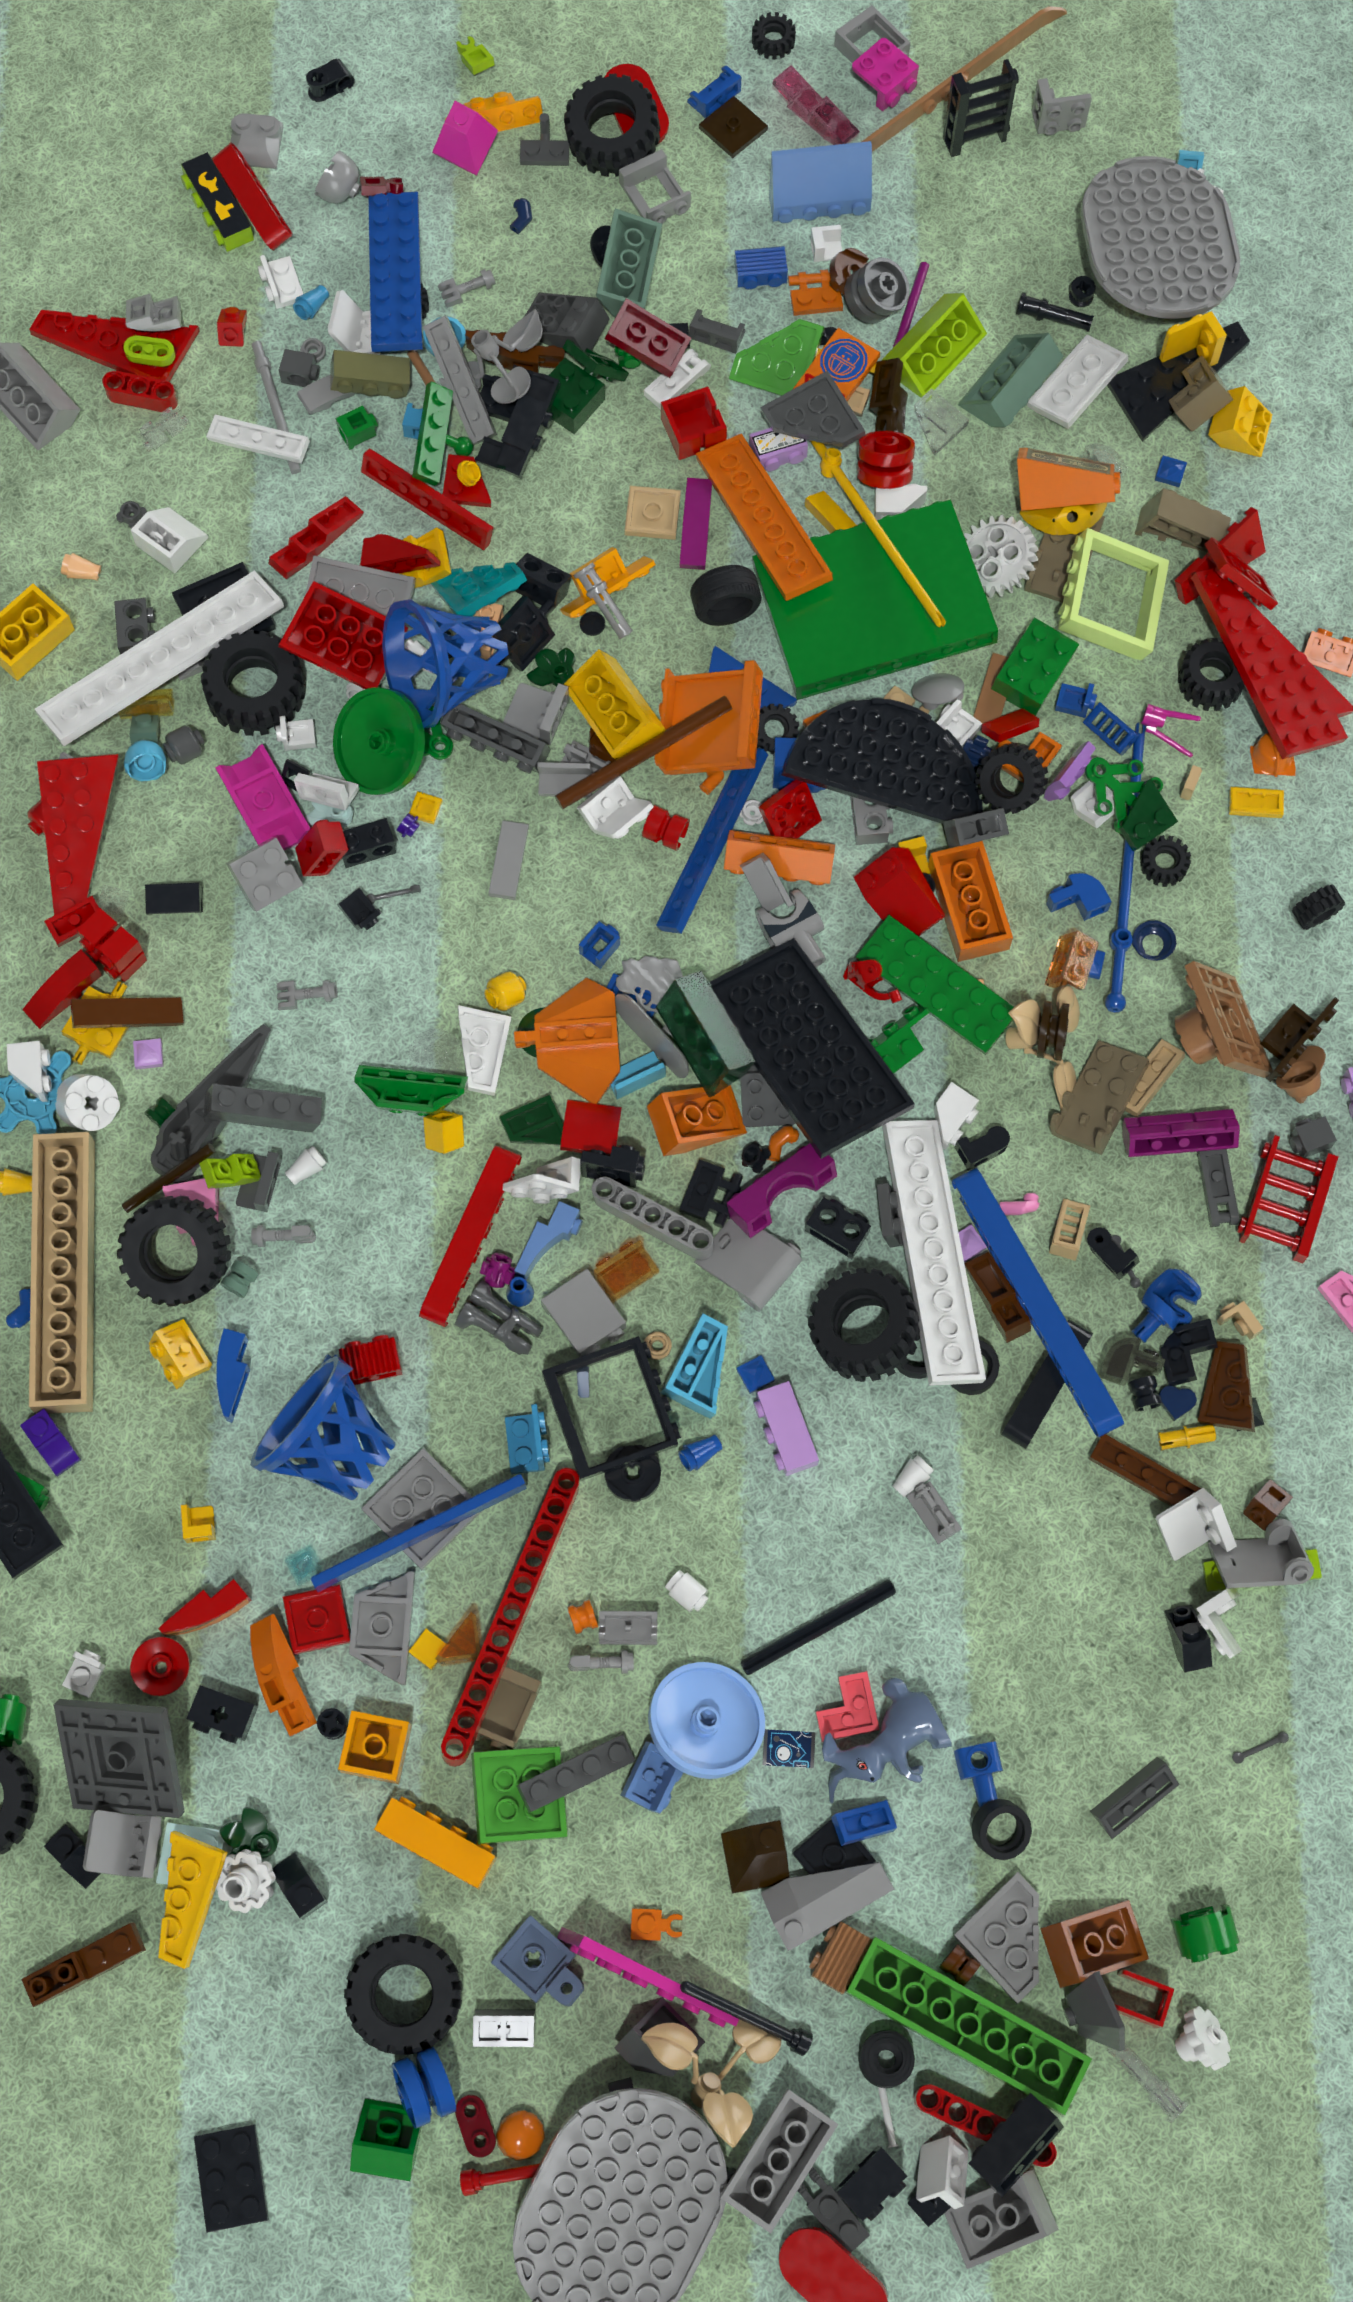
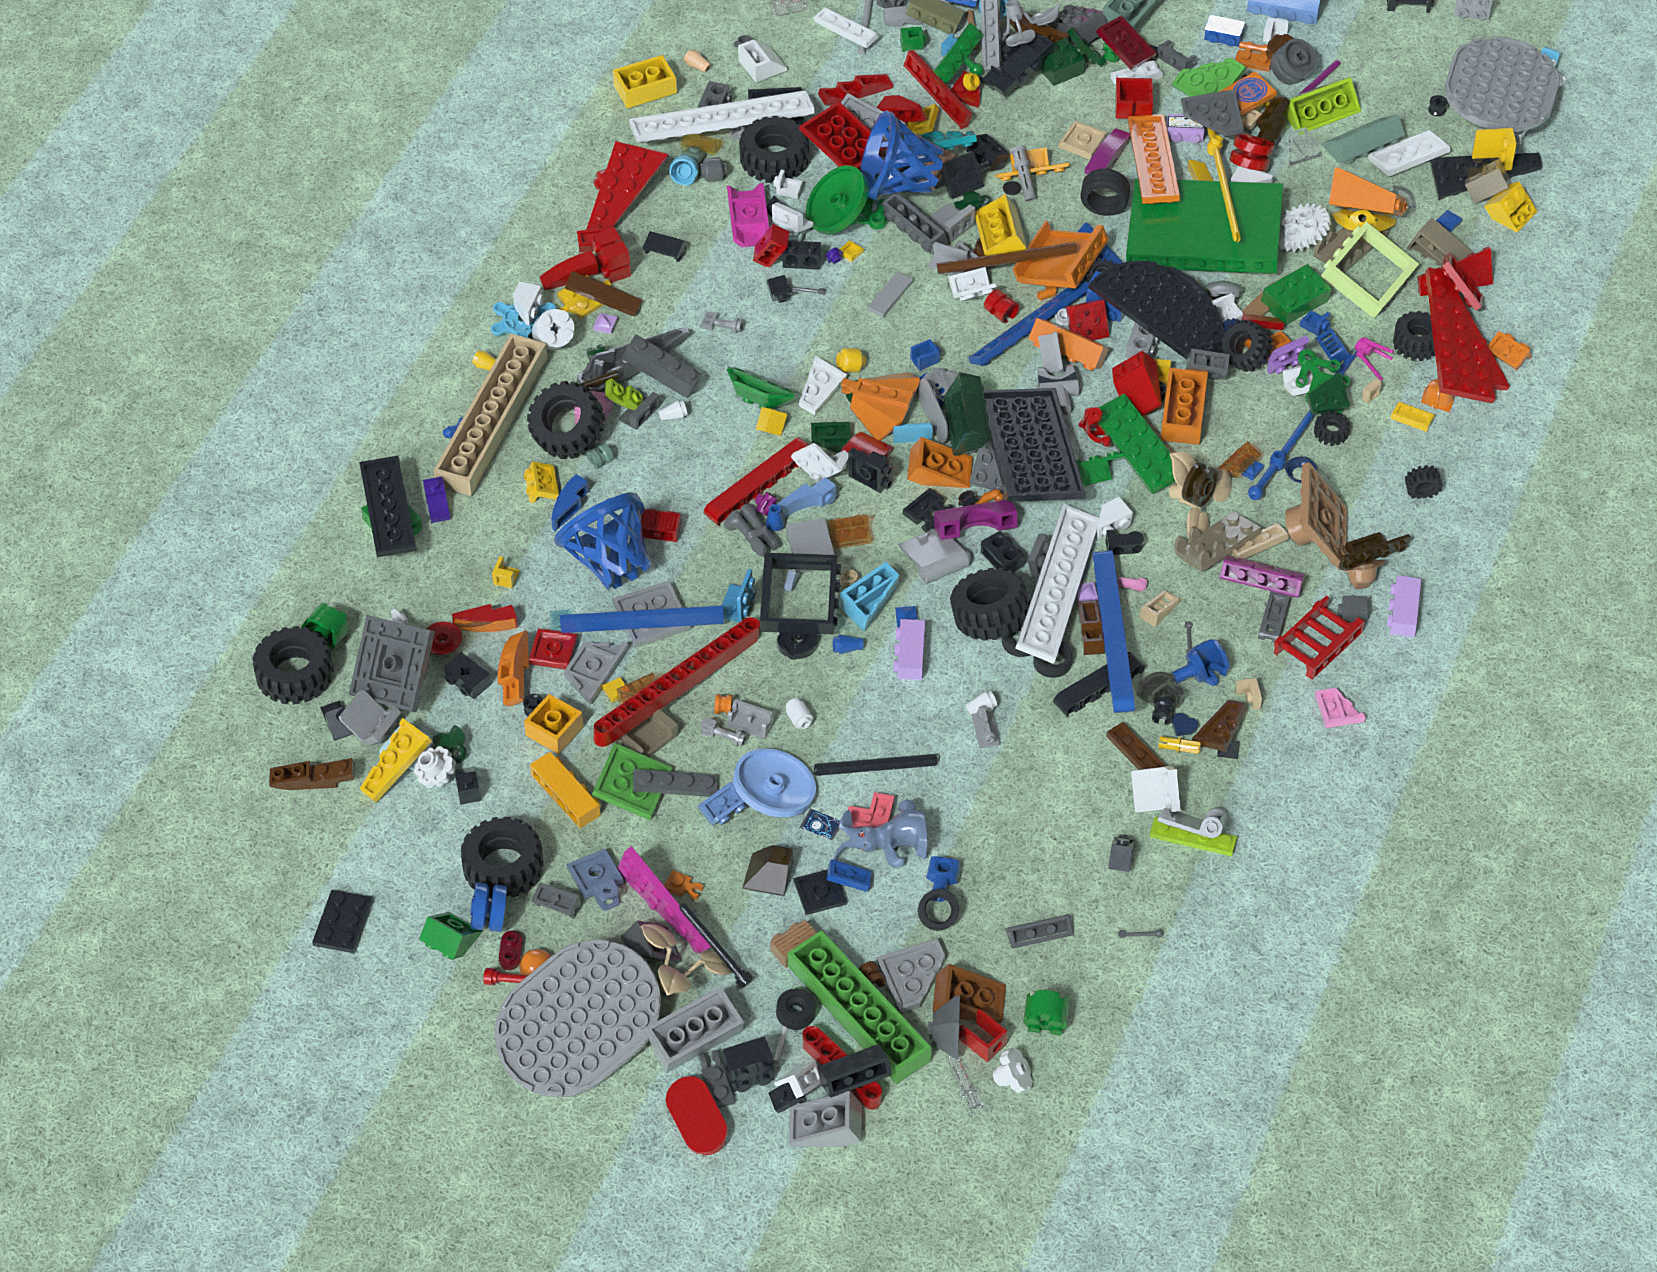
camera: 25 degrees right, 20 degrees down
(264, 874) = (727, 248): light grey piece -> none
(298, 1233) = (650, 442): light grey hinge -> none
(658, 1229) = (882, 508): light grey beam -> none
(817, 1901) = (784, 907): light grey wedge -> none
(1042, 309) = (1405, 107): black pin -> none
(1083, 891) = (1264, 425): blue brick -> none
(1110, 1254) = (1182, 632): black leg -> none
(1181, 1344) = (1195, 701): black plate -> none
(1210, 1619) = (1147, 836): white bracket -> none
(1267, 1504) = (1215, 797): reddish brown bracket -> none

